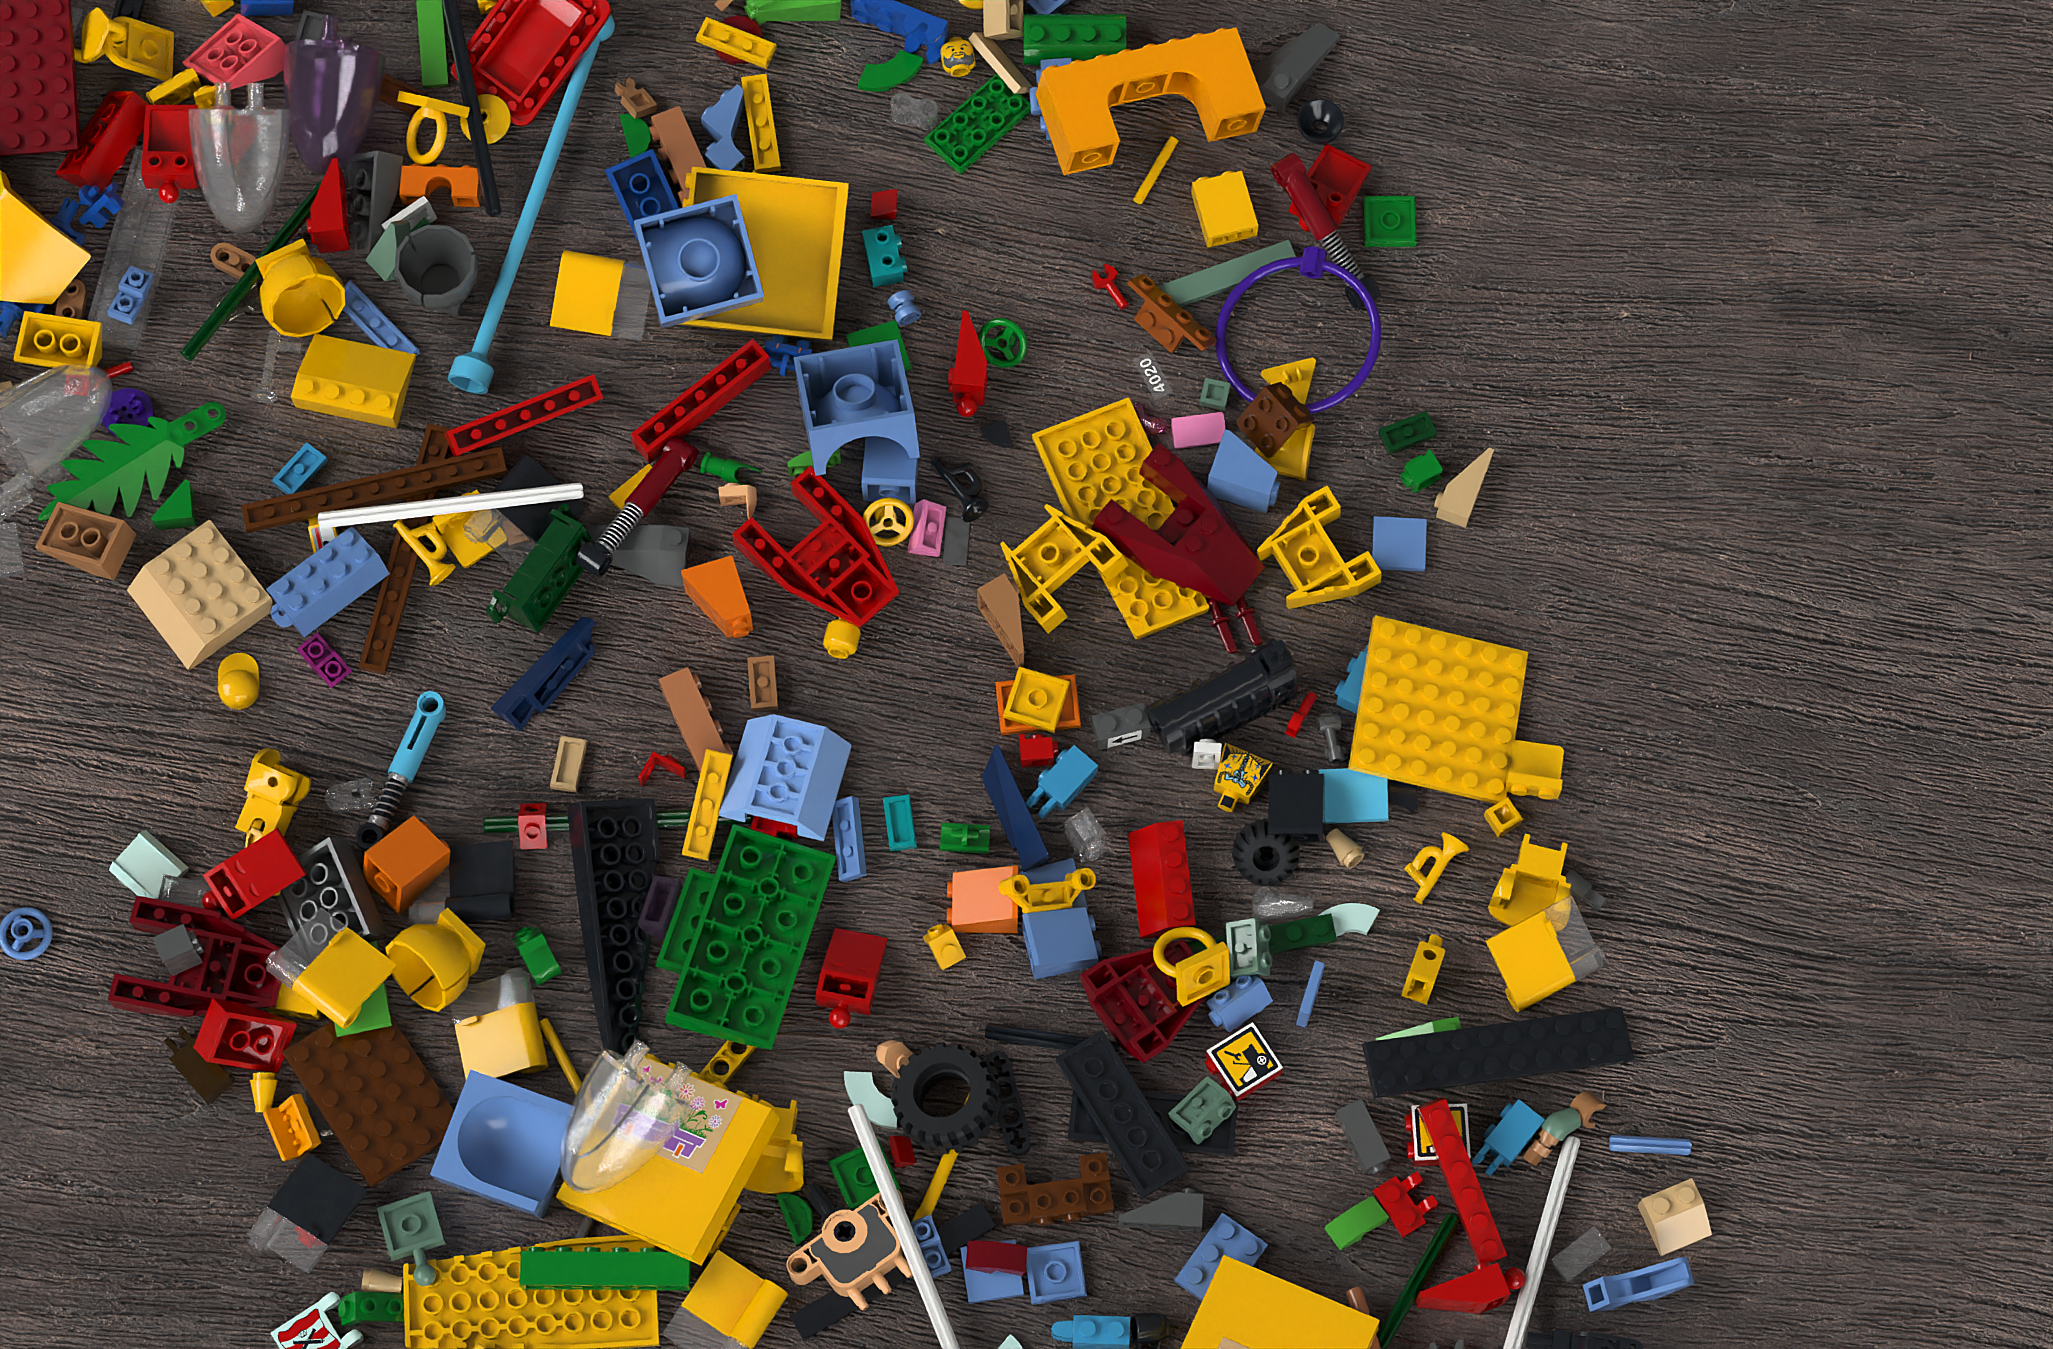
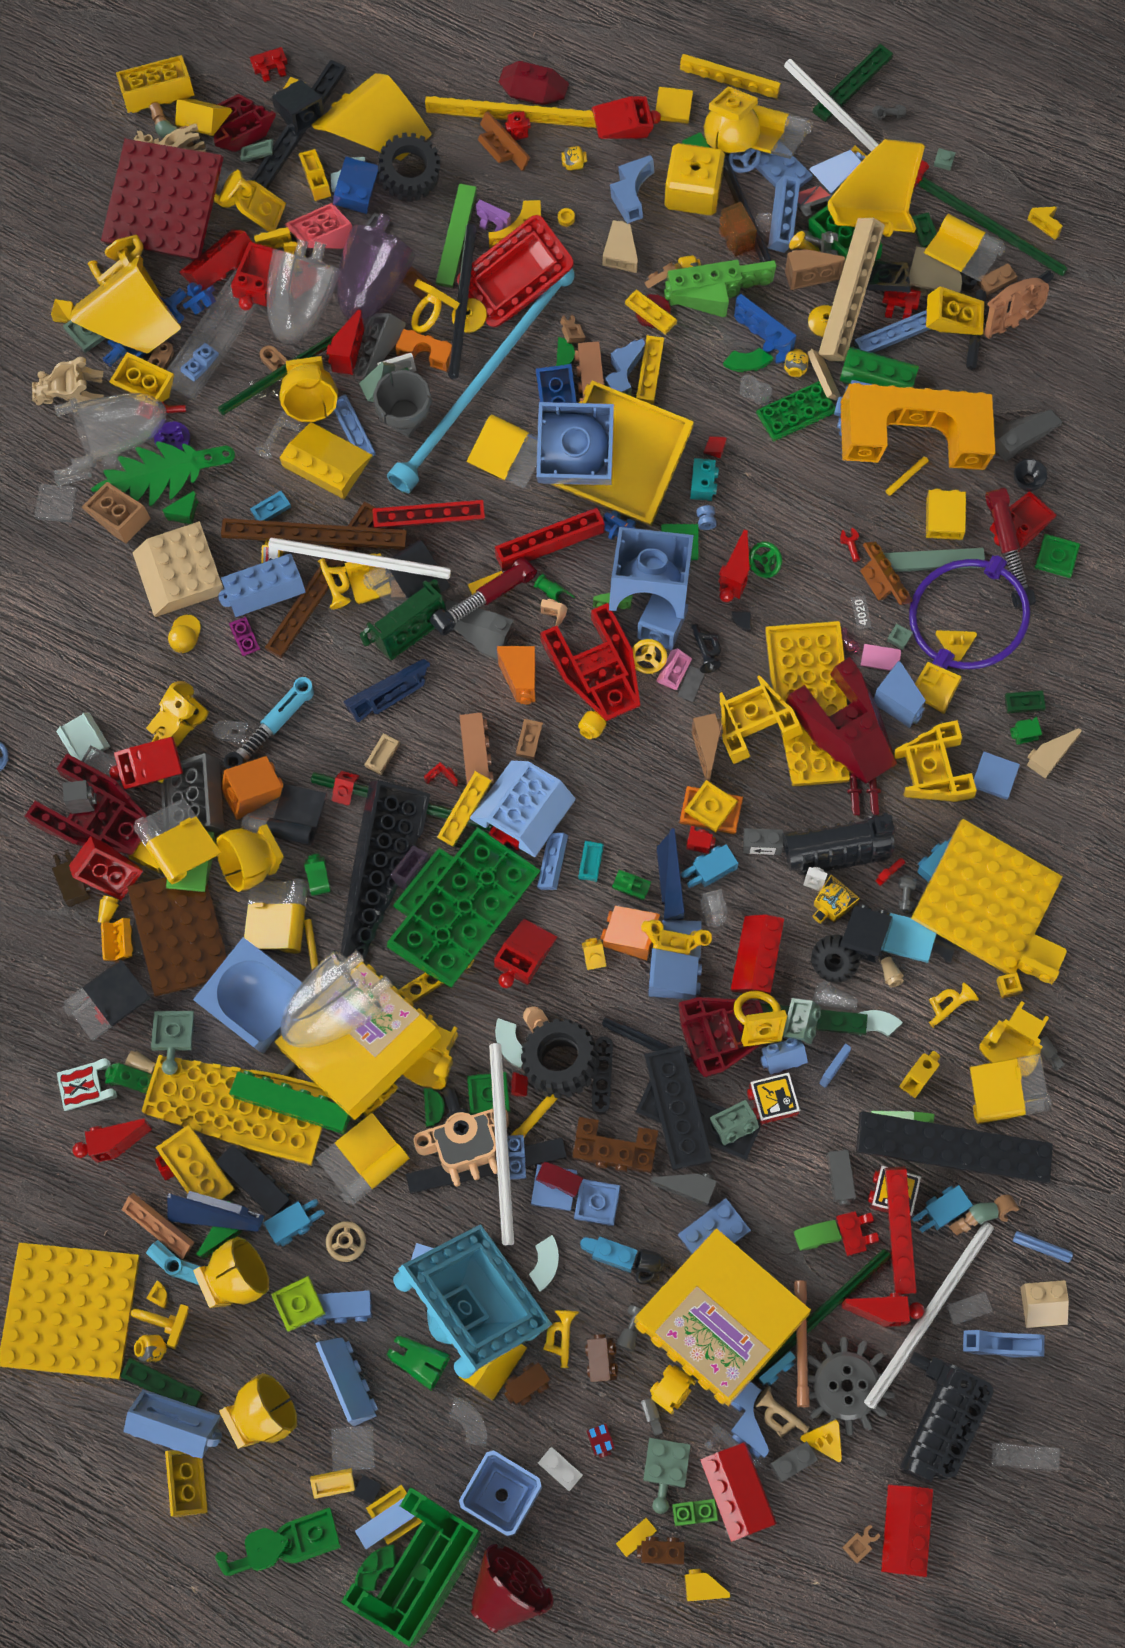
camera: 20 degrees right, 0 degrees up
(1273, 418) = (934, 664): reddish brown bracket -> none

